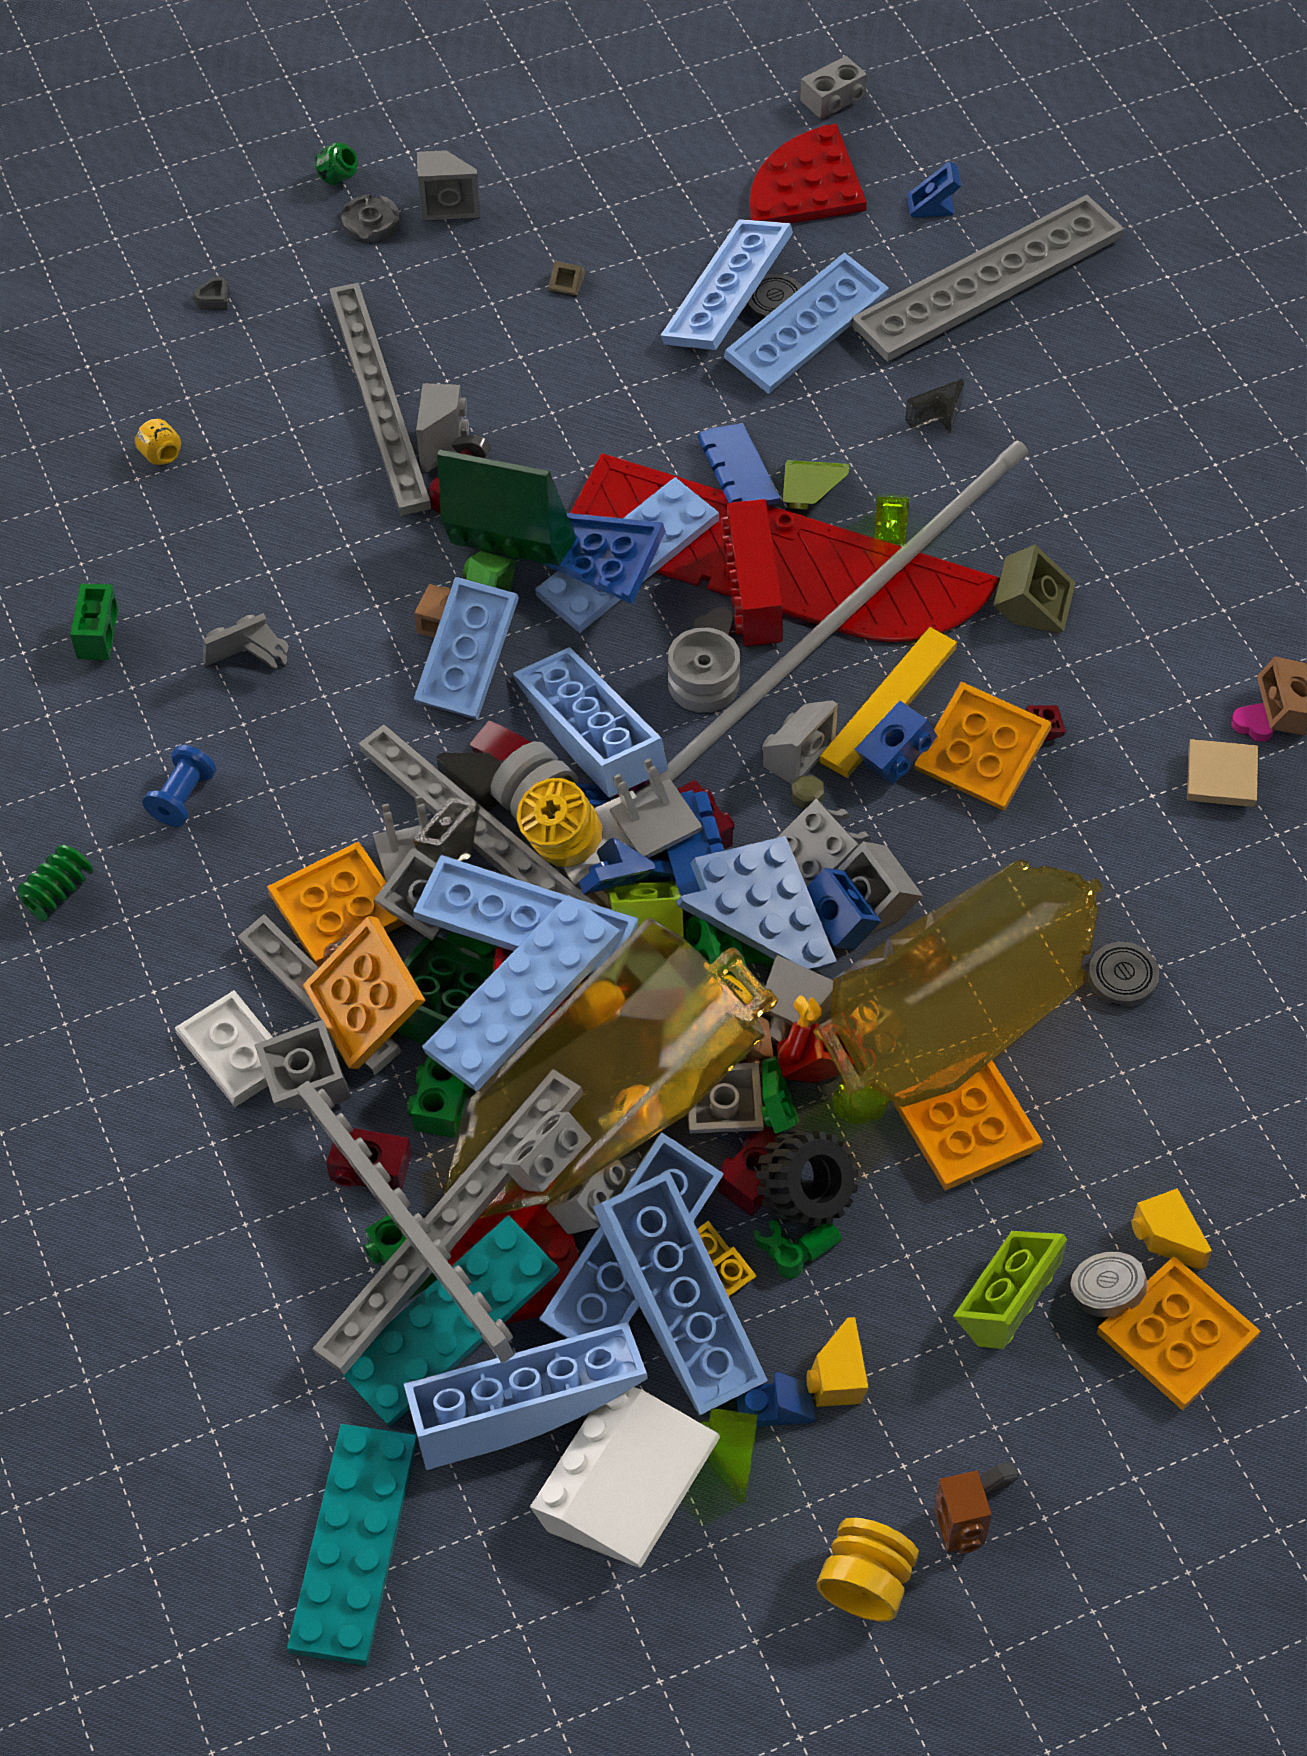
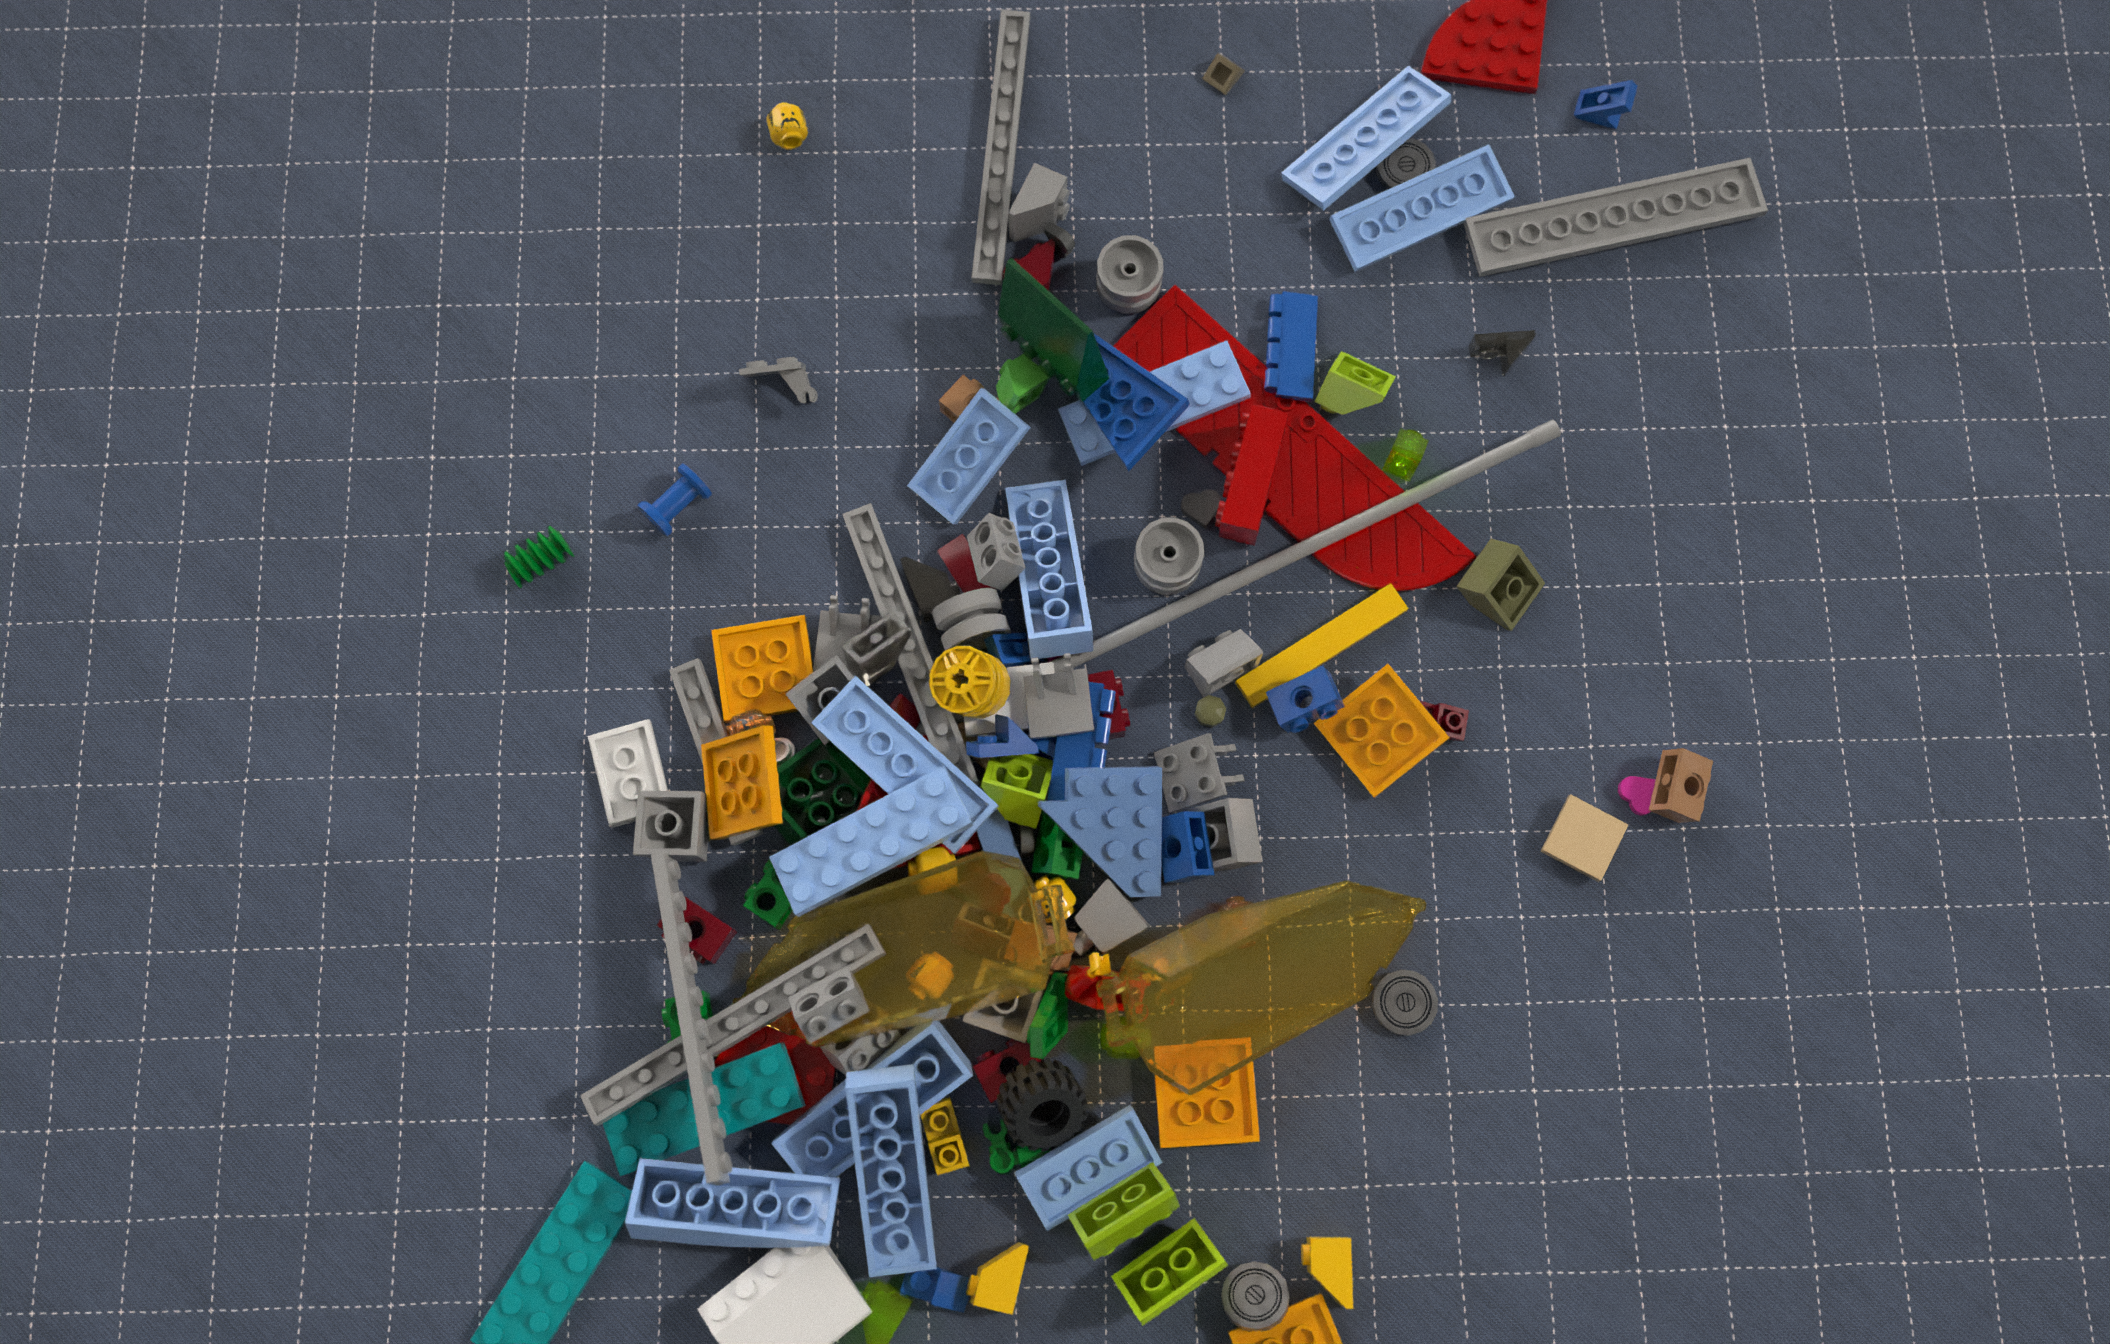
camera: 20 degrees right, 20 degrees up
(94, 621) = (662, 302): green brick -> none
(531, 715) = (995, 551): none -> light grey brick
(558, 447) = (1129, 274): none -> light grey wheel
(881, 1227) = (1086, 1166): none -> light blue plate
(939, 1251) = (1124, 1211): none -> lime slope

